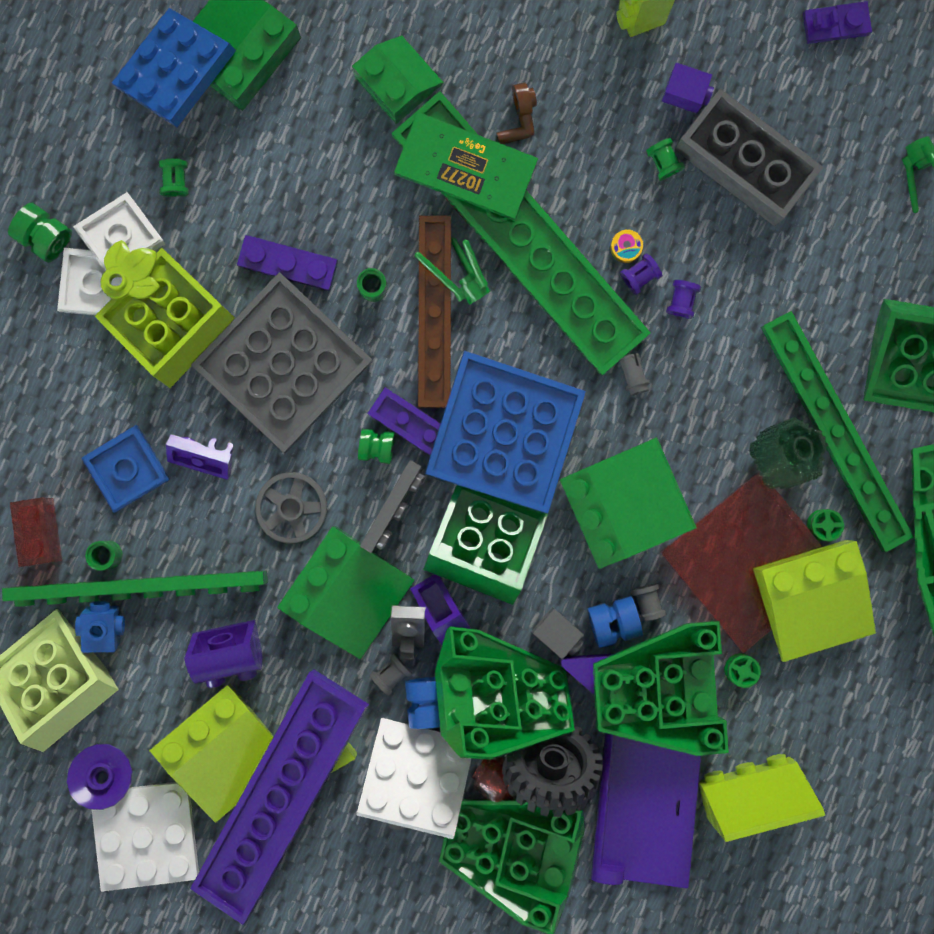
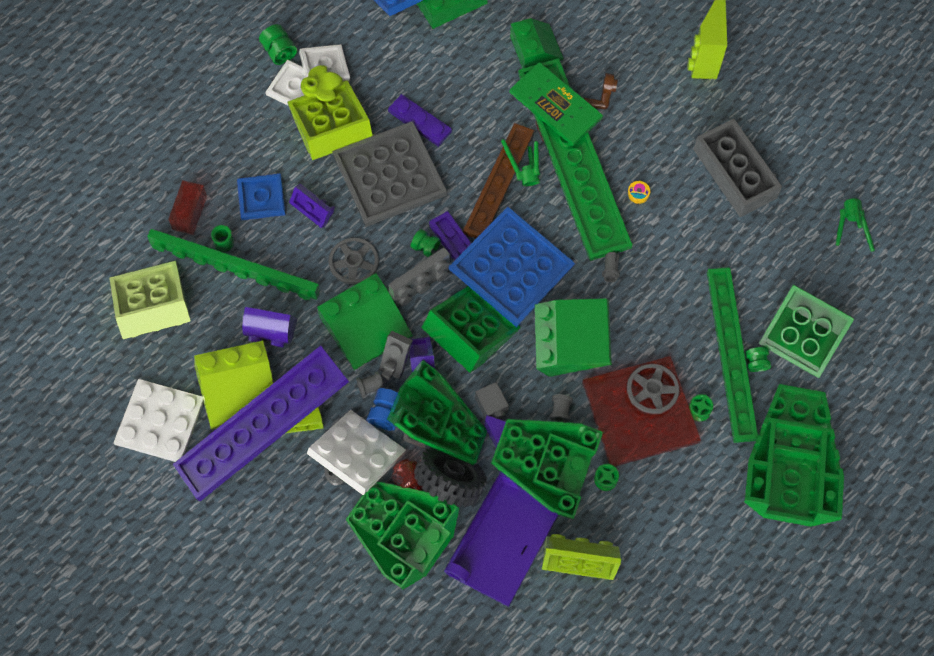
camera: 25 degrees right, 20 degrees down
(84, 774) = (147, 362): dark purple dish -> none
(100, 627) = (203, 283): blue brick -> none
(169, 167) = (365, 51): green bush -> none
(366, 275) = (469, 144): green beam -> none
(626, 619) = (541, 407): blue wheel -> none
(641, 274) = (641, 210): dark purple bush -> none
(665, 159) = (684, 151): green bush -> none
(683, 299) = (662, 234): dark purple bush -> none
(688, 88) = (714, 114): dark purple brick -> none
(756, 528) = (652, 389): none -> dark grey wheel
(789, 454) = (692, 348): clear green brick -> none
(817, 599) = (674, 446): lime slope -> none
(837, 22) = (827, 117): dark purple plate -> none
(874, 426) = (758, 359): none -> green wheel

